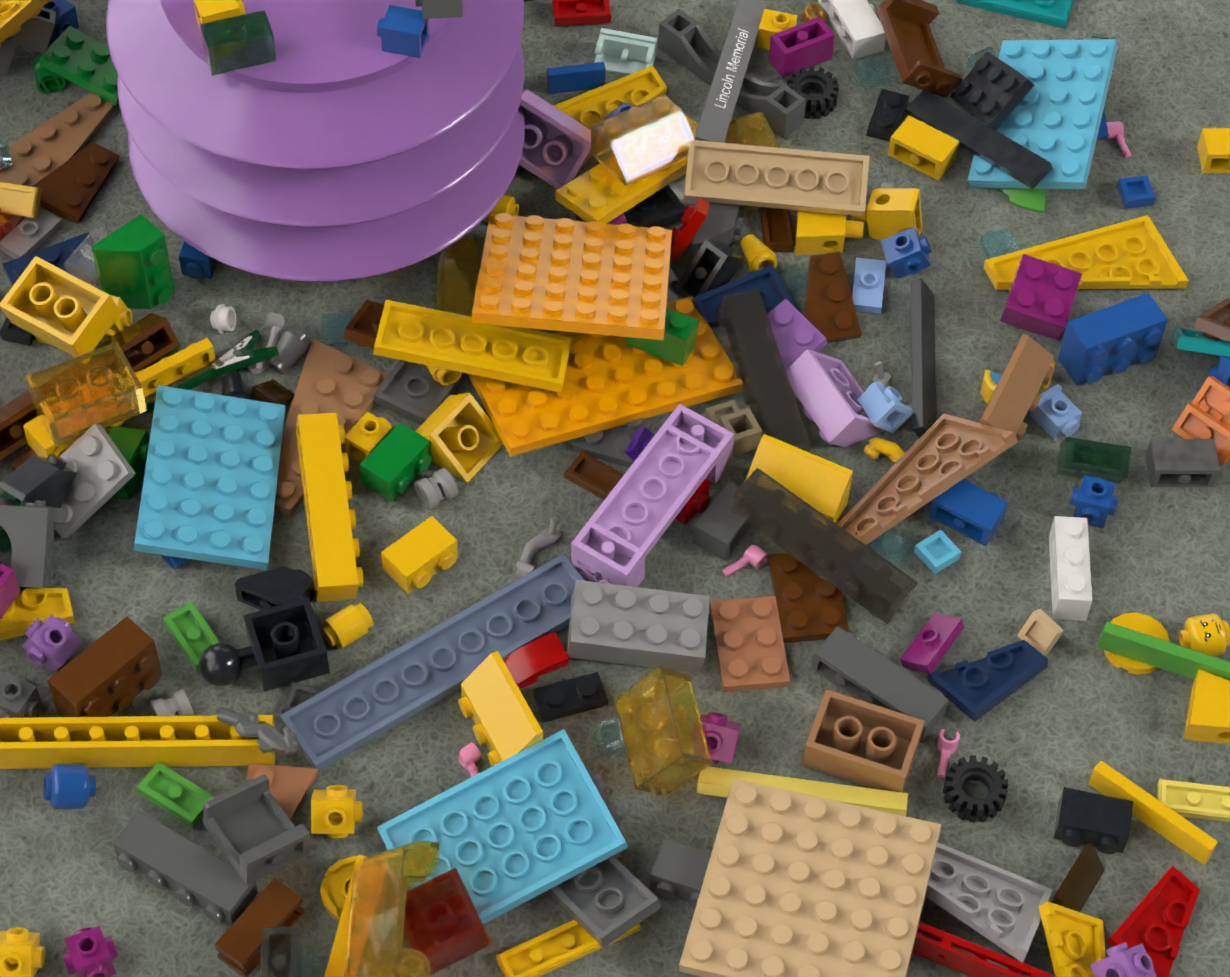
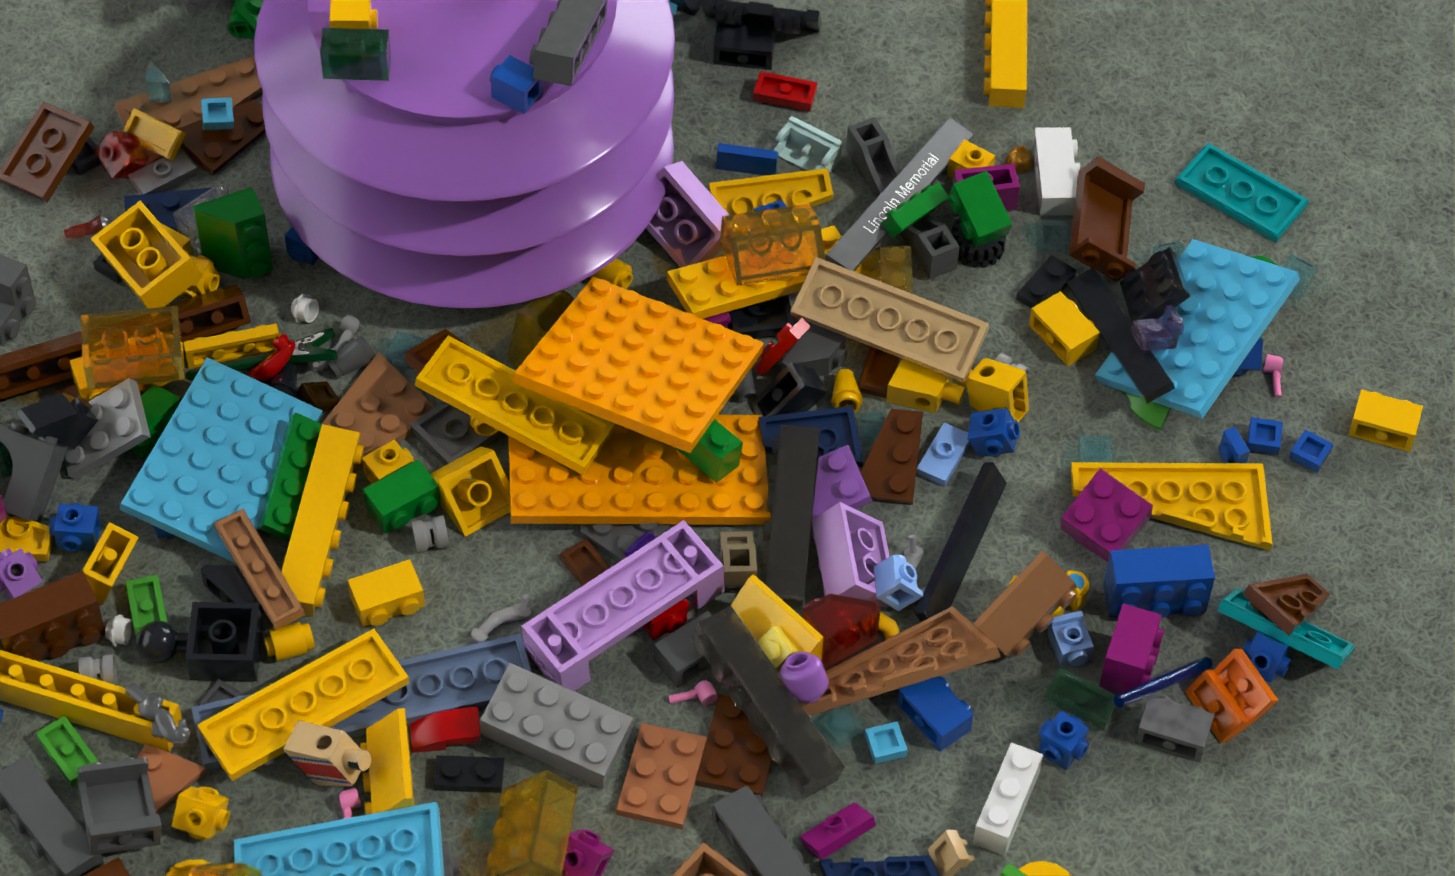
camera: 20 degrees right, 0 degrees up
(65, 163) = (217, 113): none -> medium azure plate
(92, 581) = (76, 527): none -> blue brick
(140, 597) = (108, 560): none -> yellow brick
(175, 666) = (119, 630): none -> white plate
(222, 370) = (276, 361): none -> red arm
(284, 473) = (290, 476): none -> green plate
(294, 566) = (259, 569): none -> medium nougat tile
(389, 680) = (316, 694): none -> yellow plate
(438, 718) = (326, 754): none -> tan torso
(751, 78) = (912, 211): none -> green piece
(811, 62) = (979, 209): none -> green brick
(812, 492) = (777, 646): none -> light yellow plate
(849, 511) = (804, 676): none -> medium lavender head
(860, 451) = (844, 623): none -> clear red slope
(1017, 125) = (1158, 333): none -> clear purple bracket
(1116, 208) = (1232, 447): none -> blue plate
(1119, 405) = (1132, 650): none -> magenta brick
(1156, 425) = (1162, 682): none -> clear blue bar
(1181, 193) = (1311, 450): none -> blue plate

